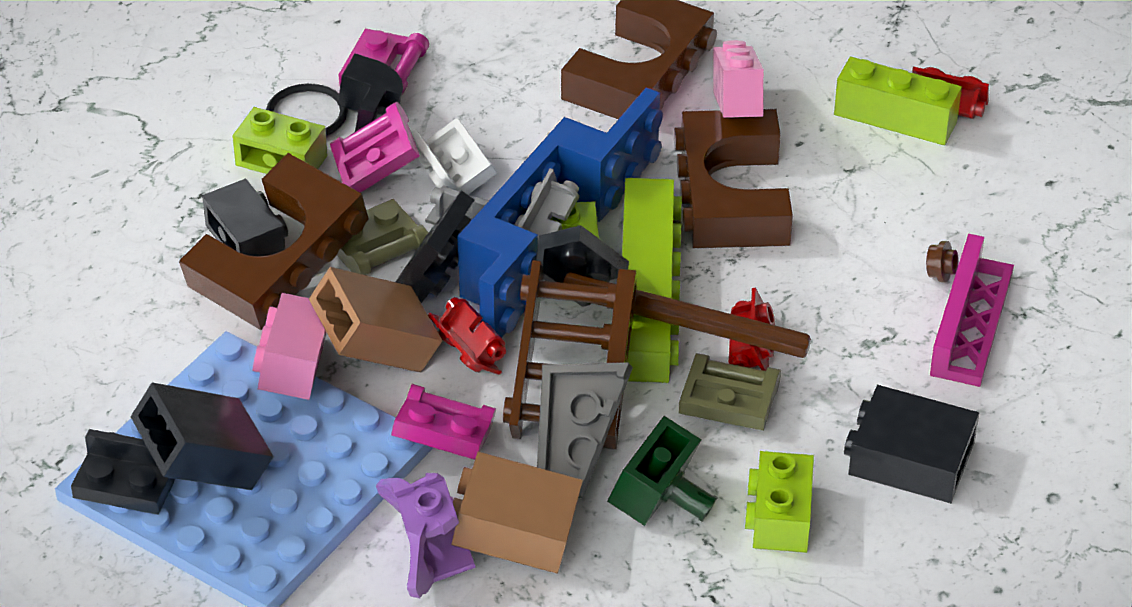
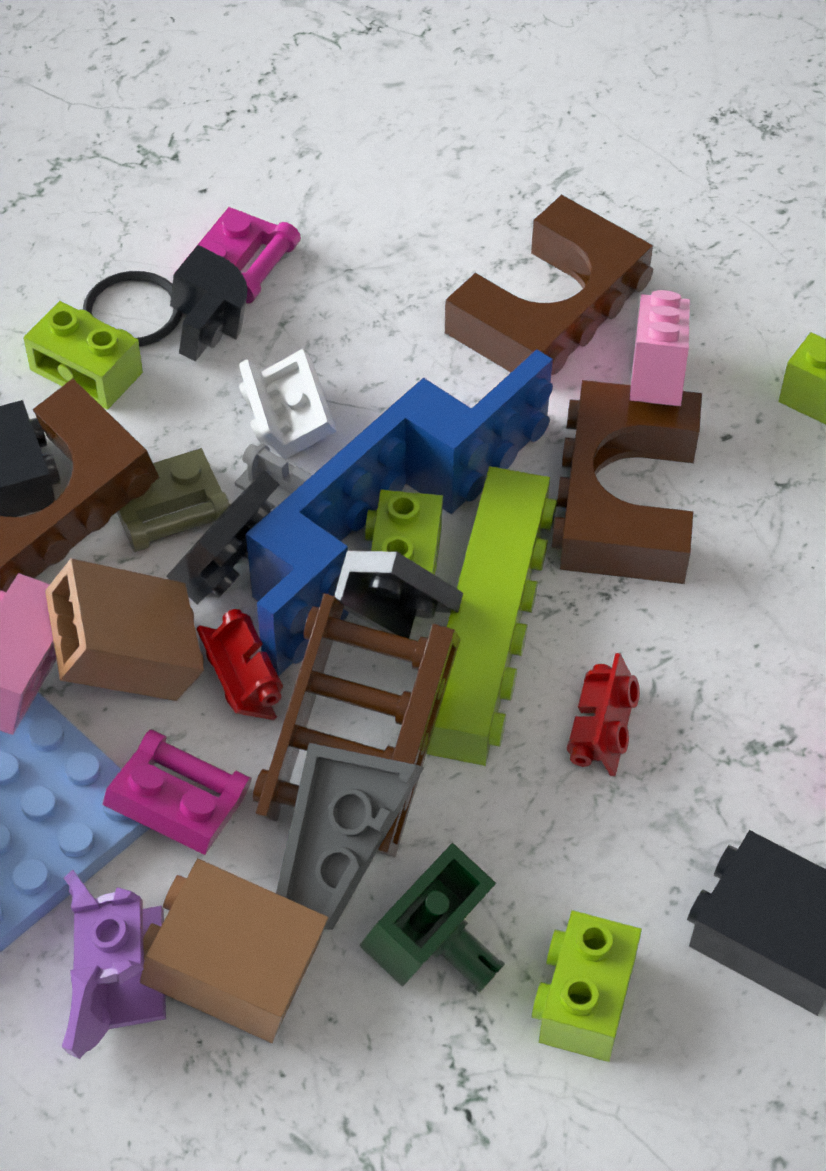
camera: 10 degrees right, 10 degrees up
(375, 149) = (192, 379): dark pink plate -> none
(547, 201) = (377, 493): light grey hinge -> none
(711, 321) = (538, 696): reddish brown axle -> none
(729, 392) = (552, 810): olive plate -> none

